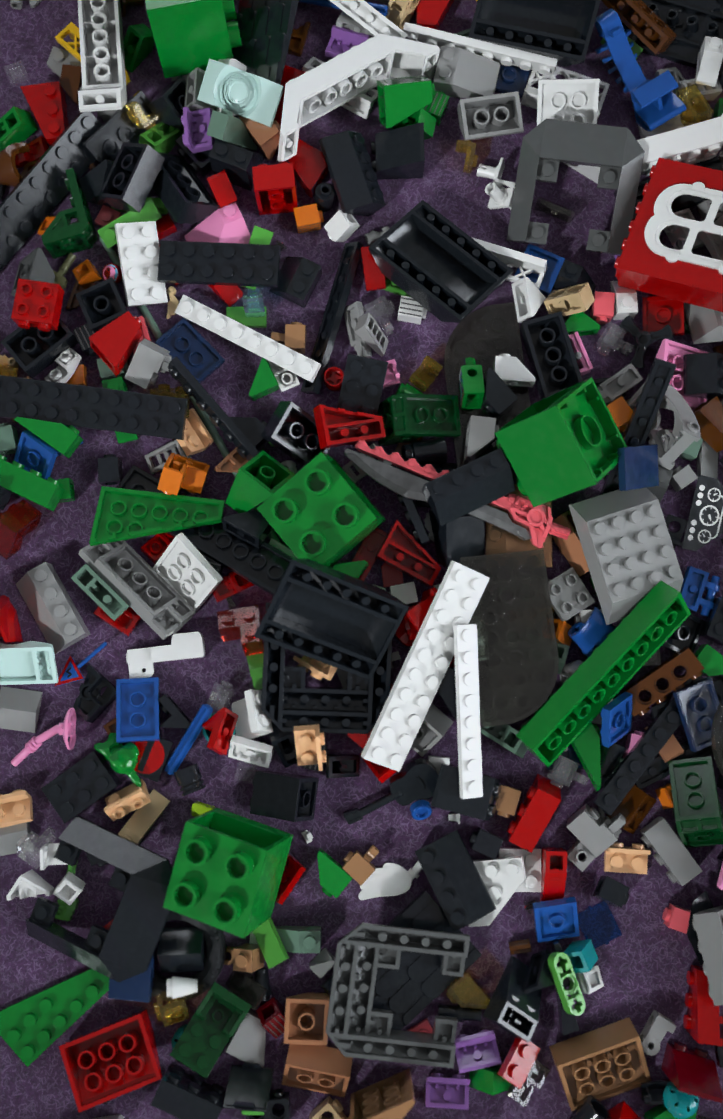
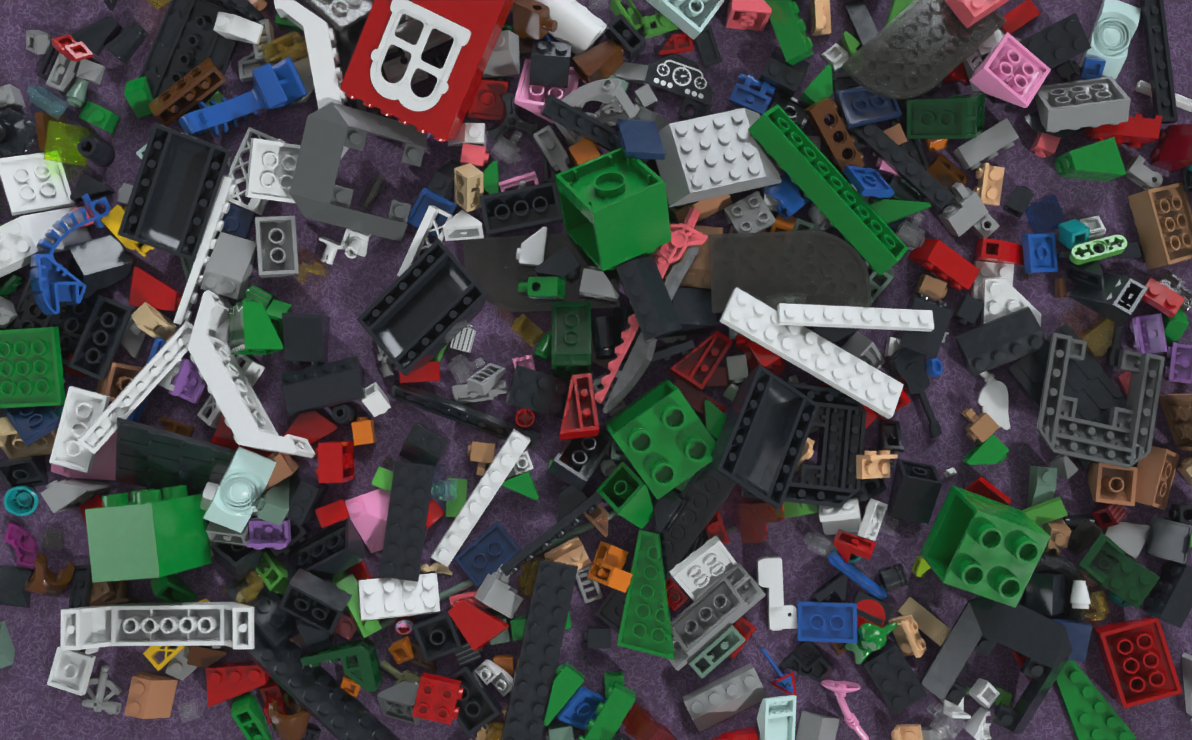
camera: 85 degrees left, 5 degrees up
(29, 33) = (150, 696): none -> nougat slope
(663, 971) = (1092, 162): none -> green slope

